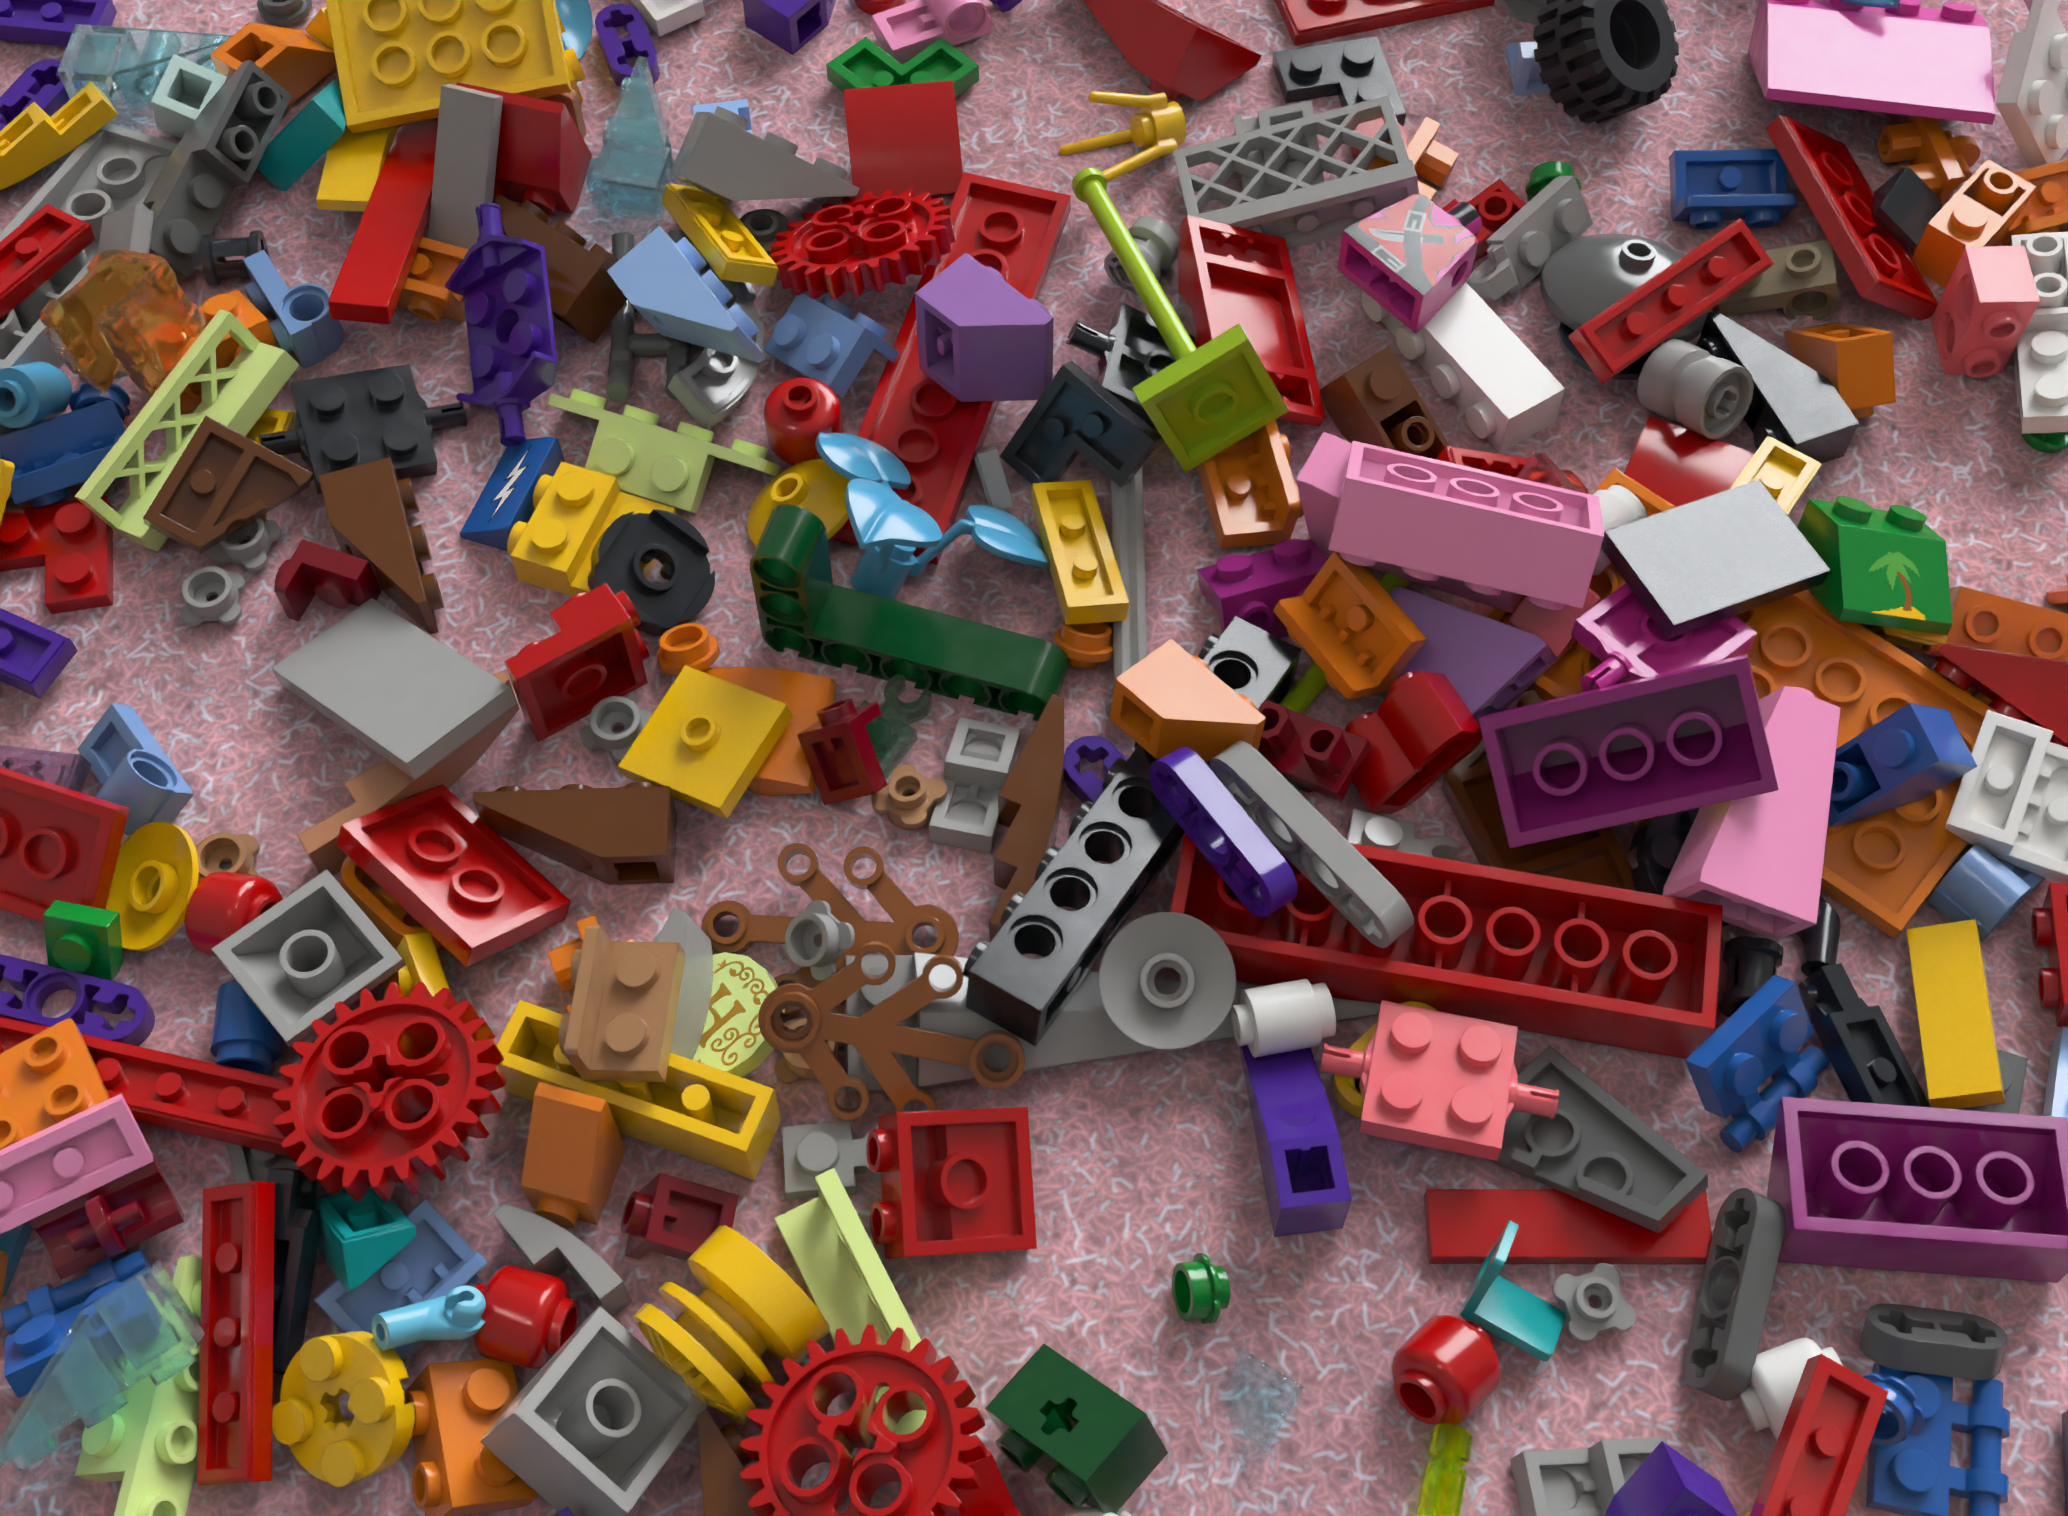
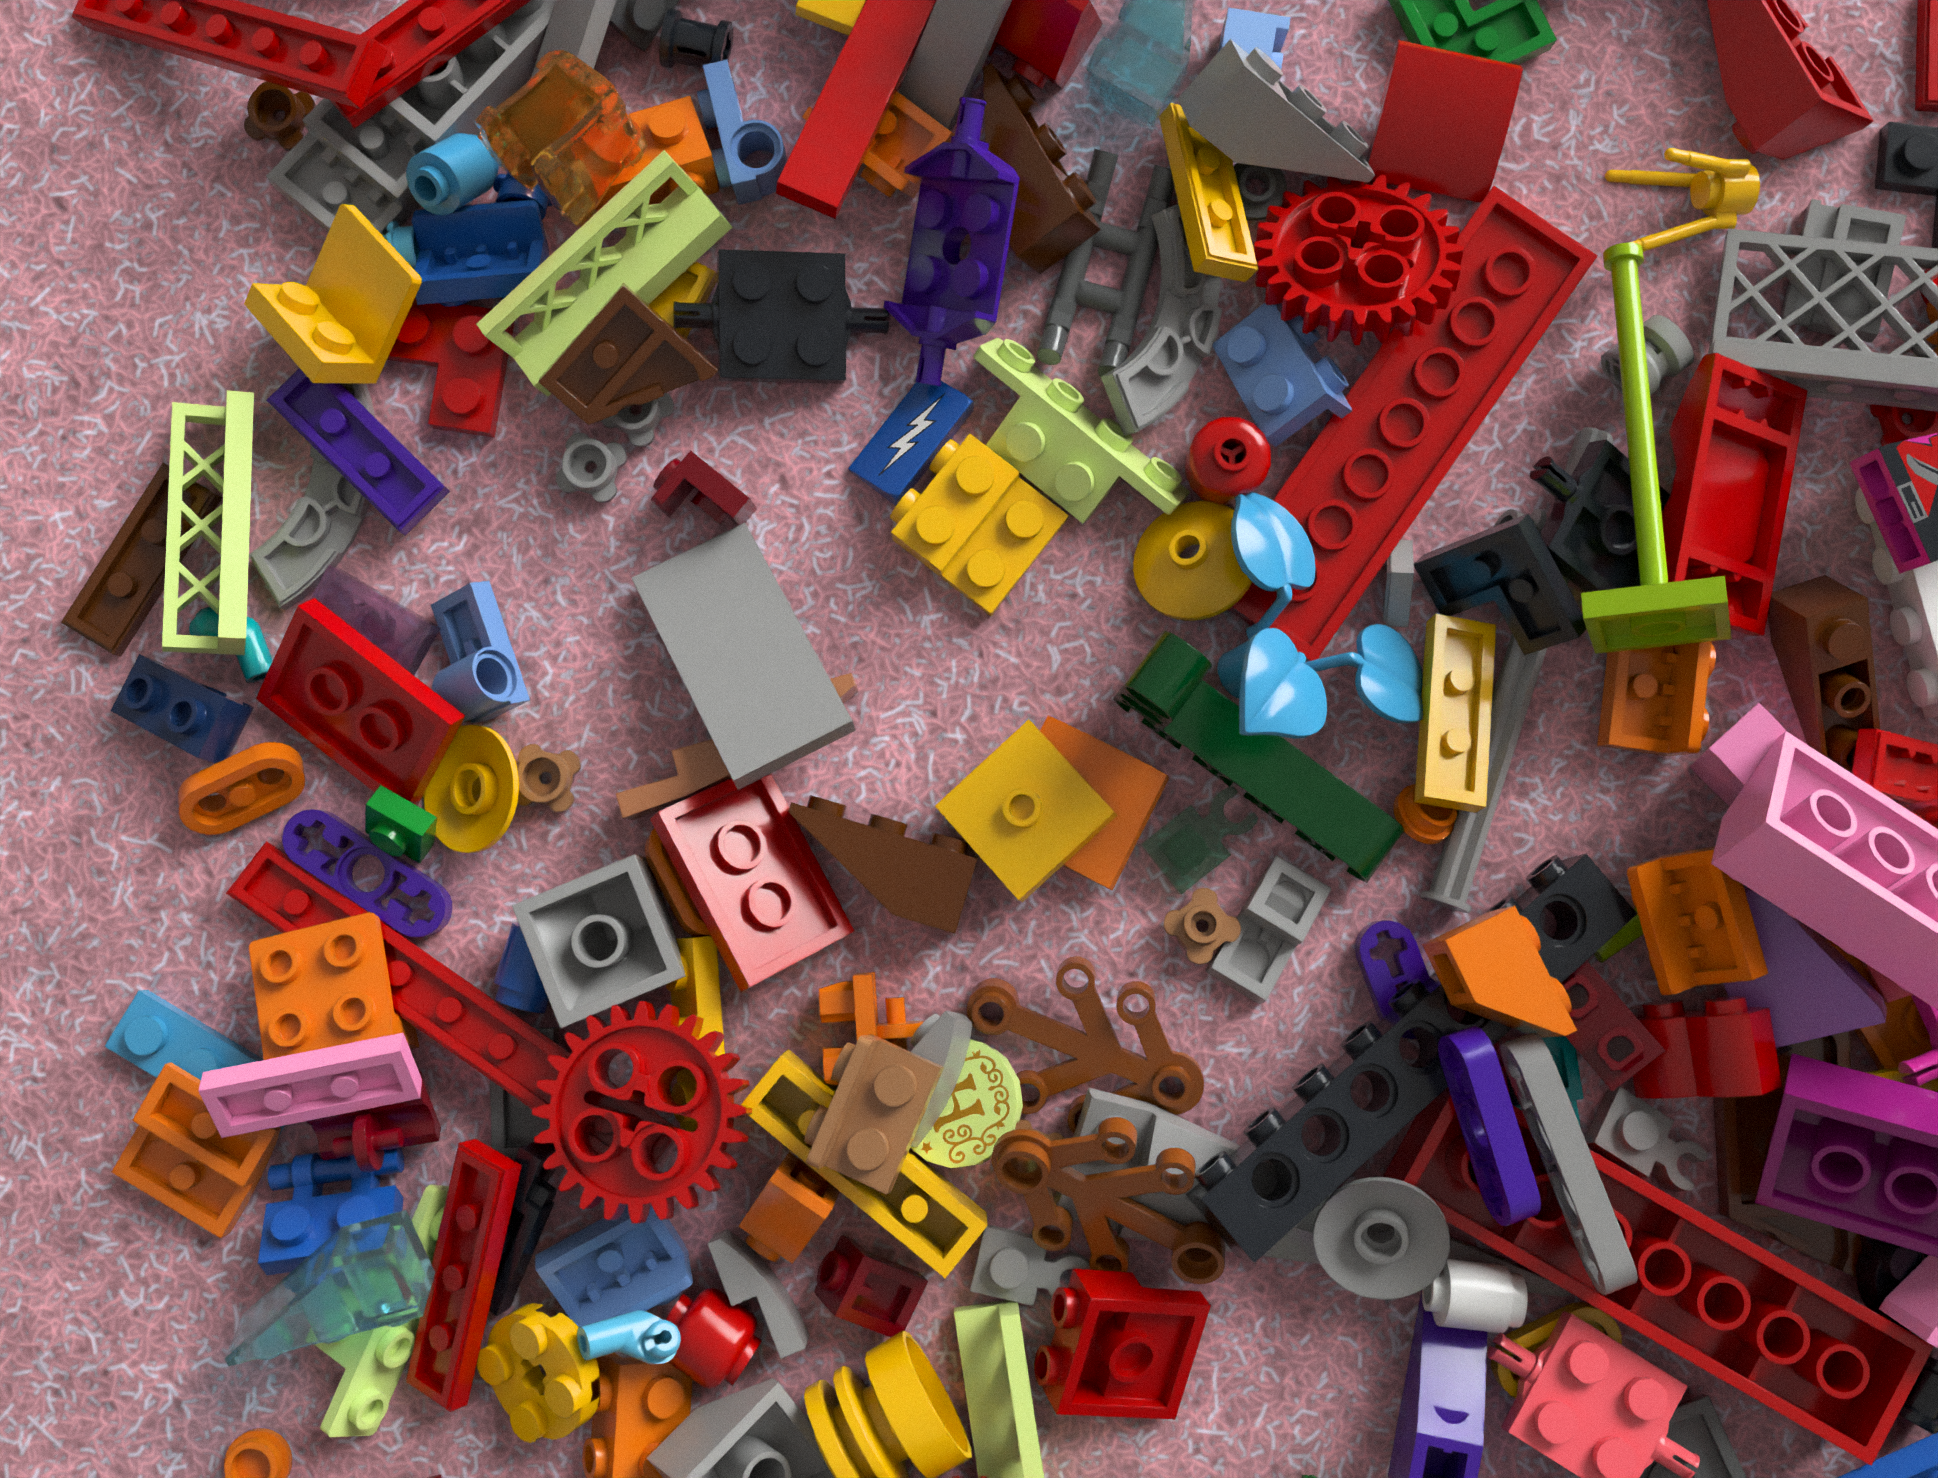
camera: 20 degrees right, 25 degrees up
(225, 905) = (544, 845): red head -> none
(360, 1235) = (587, 1241): teal slope -> none
(372, 522) = (765, 438): reddish brown slope -> none
(586, 660) = (949, 680): red plate -> none
(611, 713) = (964, 751): light grey plate -> none
(679, 301) = (1138, 265): light blue slope -> none
(684, 567) = (992, 587): black plate -> none
(688, 646) = (1035, 692): orange plate -> none
(804, 939) = (1058, 1069): light grey plate -> none
(842, 752) = (1152, 865): dark red bracket -> none
(983, 335) = (1449, 445): medium lavender slope -> none
(1030, 807) = (1320, 981): reddish brown slope -> none
(1257, 582) = (1631, 811): magenta bracket -> none

